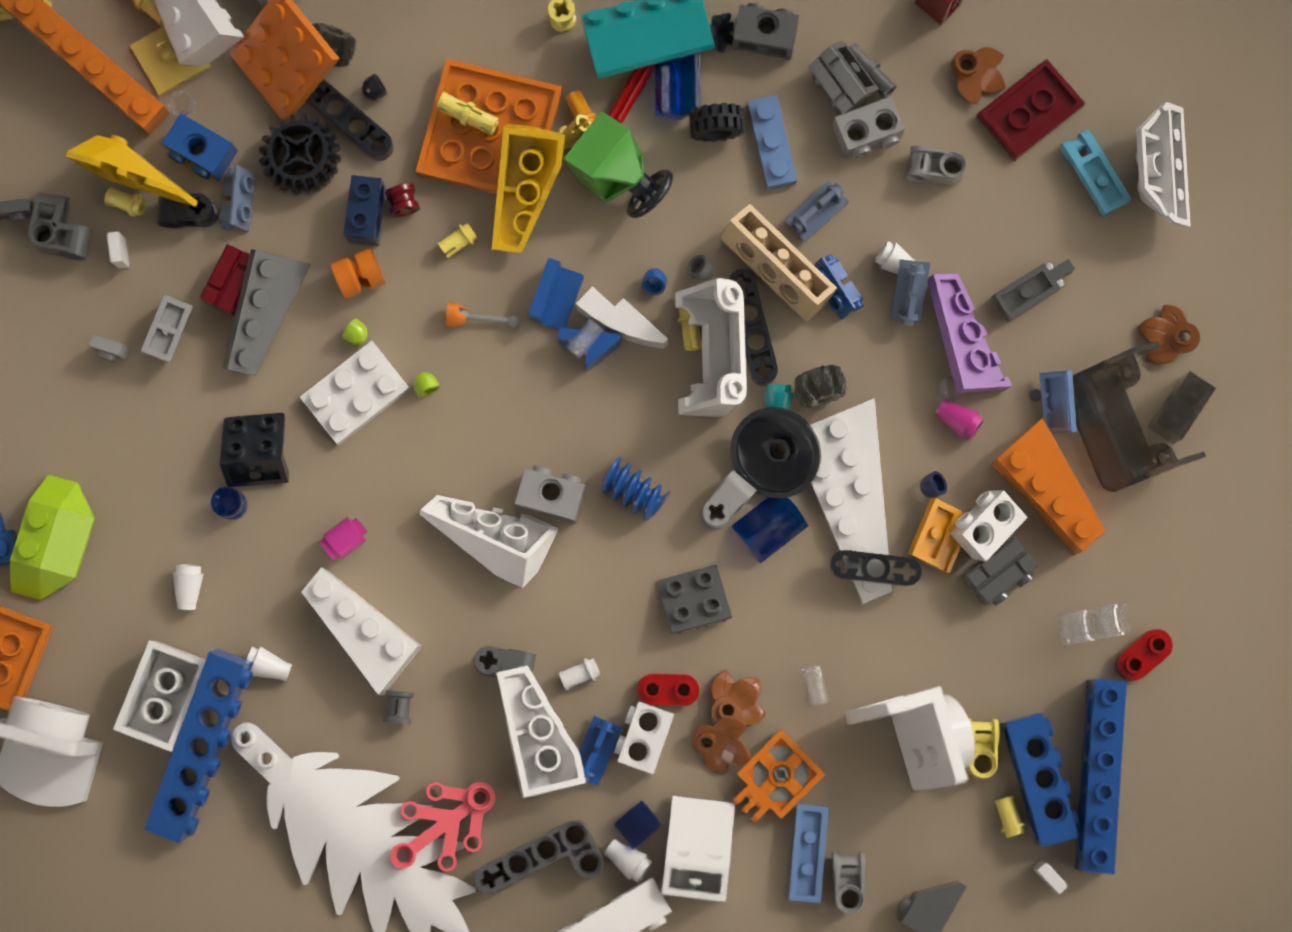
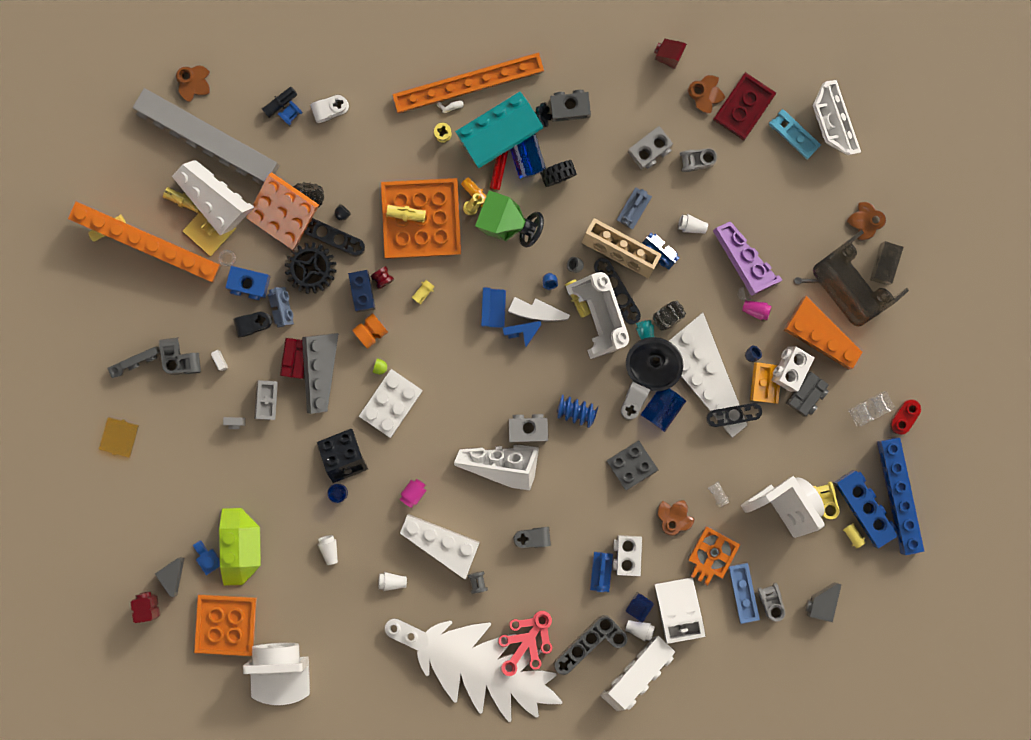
camera: 25 degrees left, 5 degrees up
(117, 163) = (208, 308): yellow wedge -> none
(124, 201) = (213, 329): light yellow pin -> none
(160, 695) = (338, 619): white brick -> none
(164, 816) = (362, 690): blue brick -> none
(425, 384) = (431, 385): lime hinge -> none
(458, 315) = (438, 337): hinge -> none
(526, 175) = (455, 240): yellow wedge -> none
(539, 743) = (568, 579): white wedge -> none
(580, 673) = (576, 531): white pin -> none
(584, 338) = (520, 330): clear pin -> none
(668, 689) = (633, 523): red plate -> none
(725, 745) = (677, 545): dark orange plate -> none
(772, 142) = (594, 173): medium blue plate -> none
(842, 78) = (626, 122): dark grey brick -> none
(885, 85) = (640, 112): dark grey pin -> none
(910, 291) = (705, 241): sand blue hinge -> none
(1031, 289) = (777, 217): dark grey hinge -> none
(1050, 877) = (887, 563): white tile -> none
(1058, 401) = (812, 282): medium blue plate -> none

